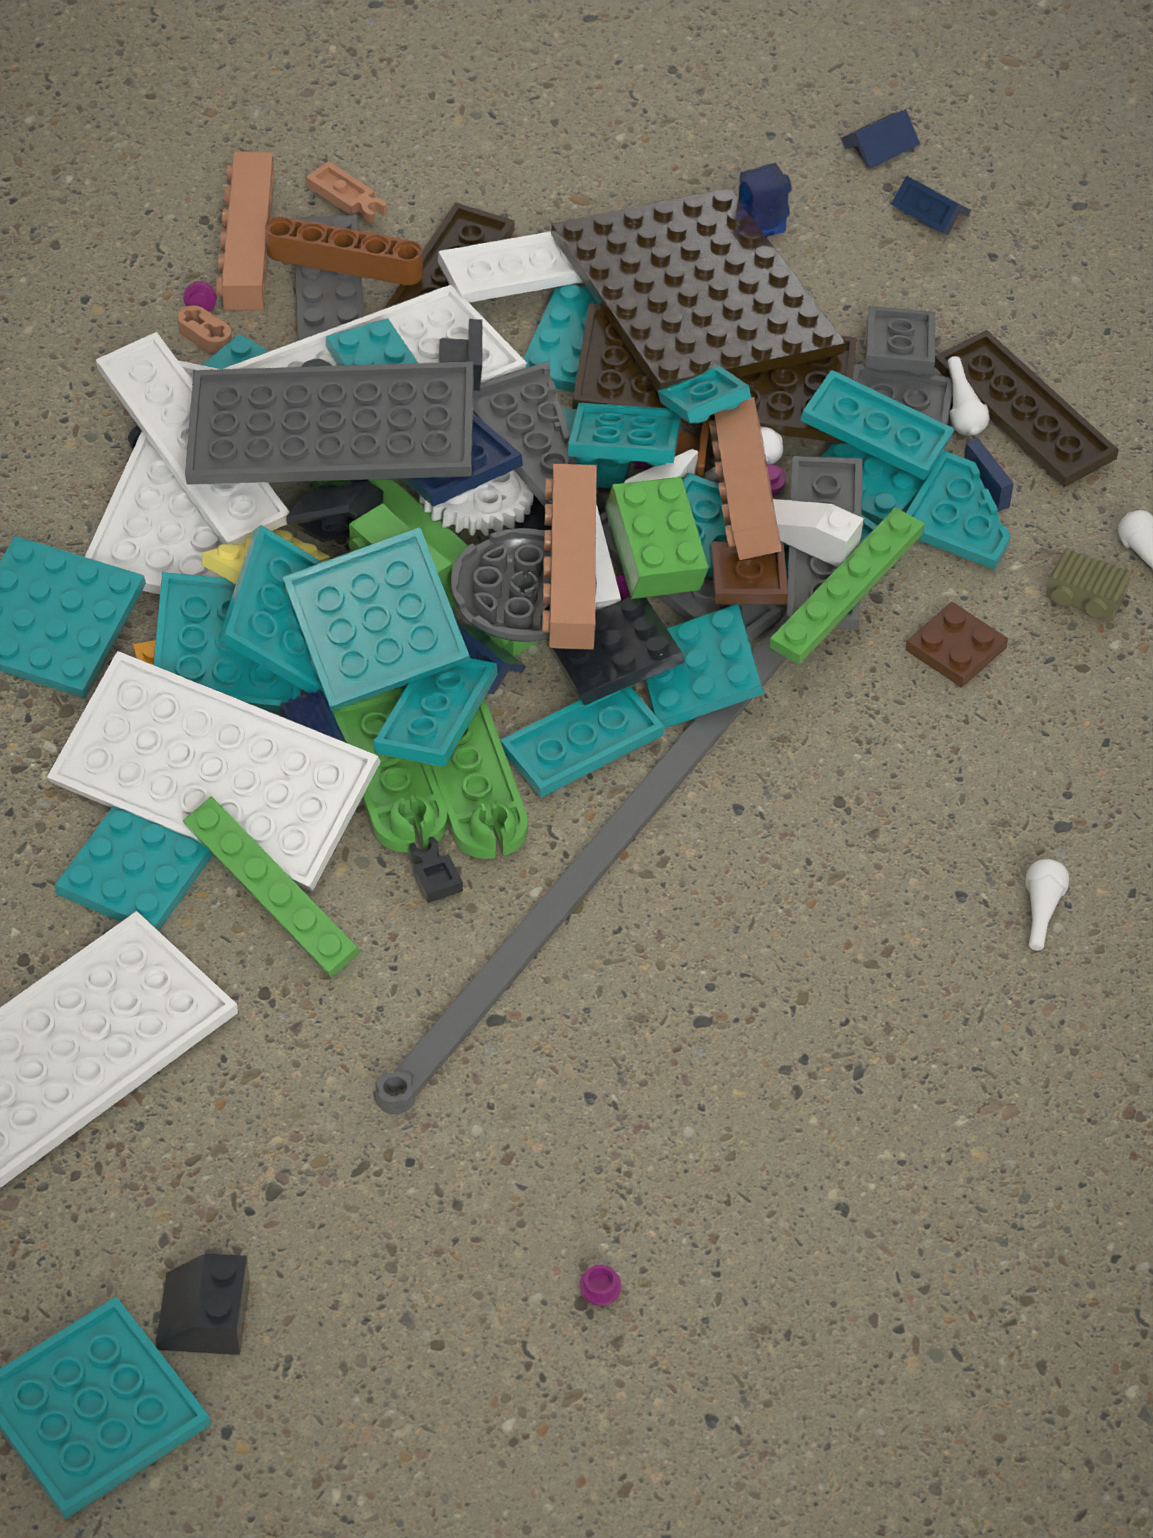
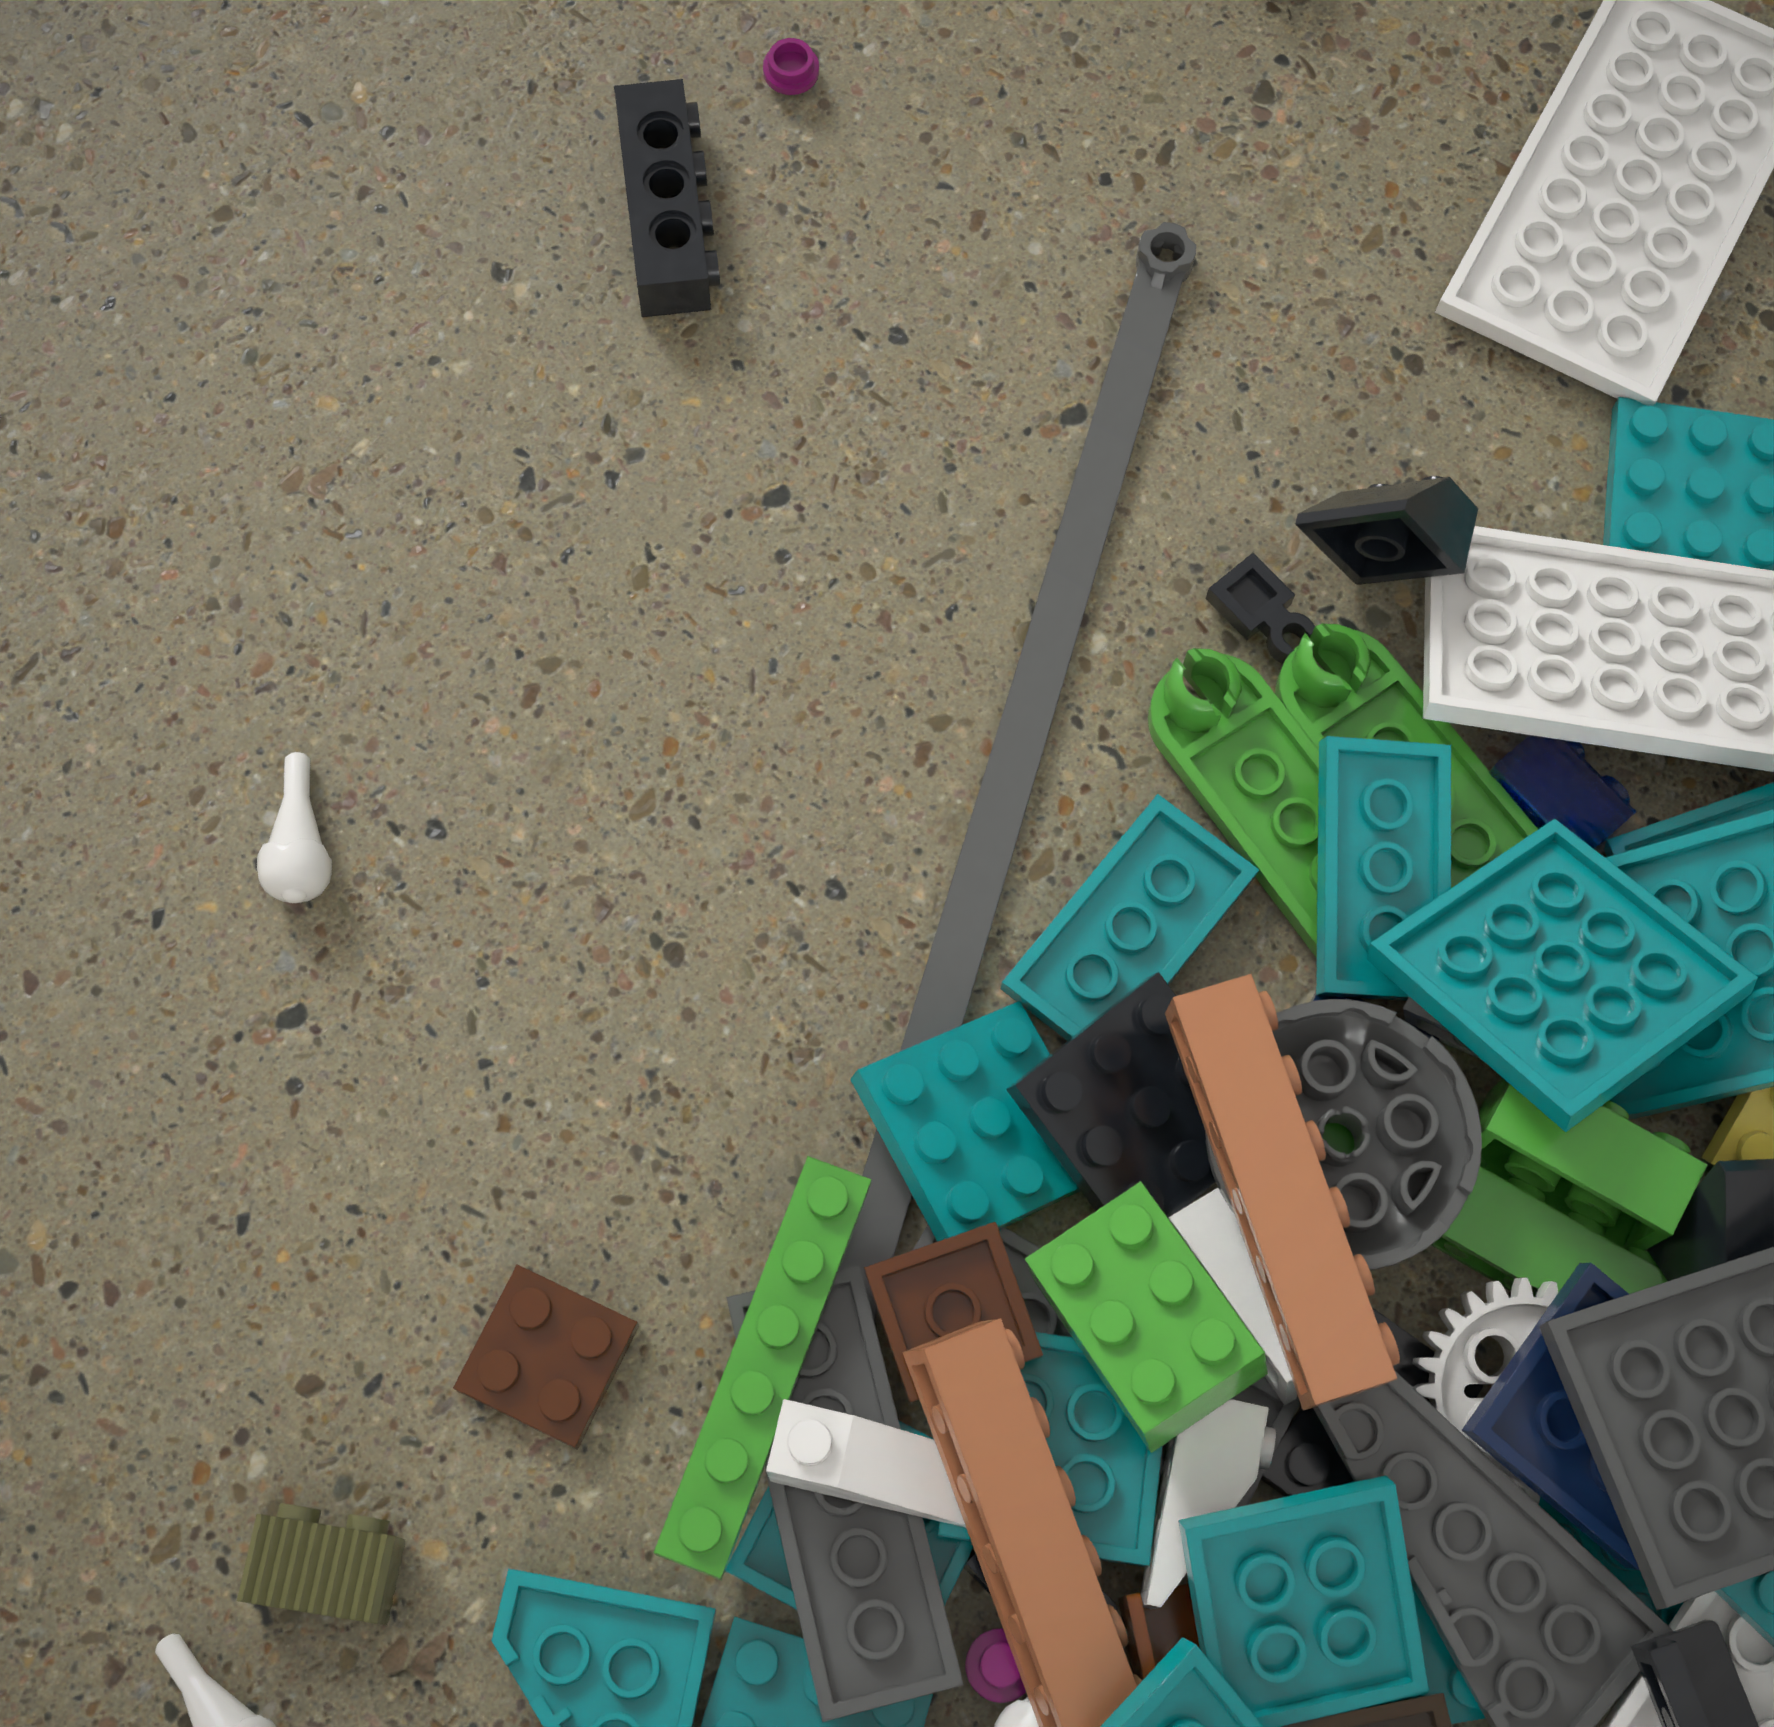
camera: 160 degrees right, 20 degrees up
(271, 887) = (1504, 502): bright green plate -> none
(347, 862) = (1394, 530): none -> black slope
(716, 1265) = (652, 118): none -> black brick

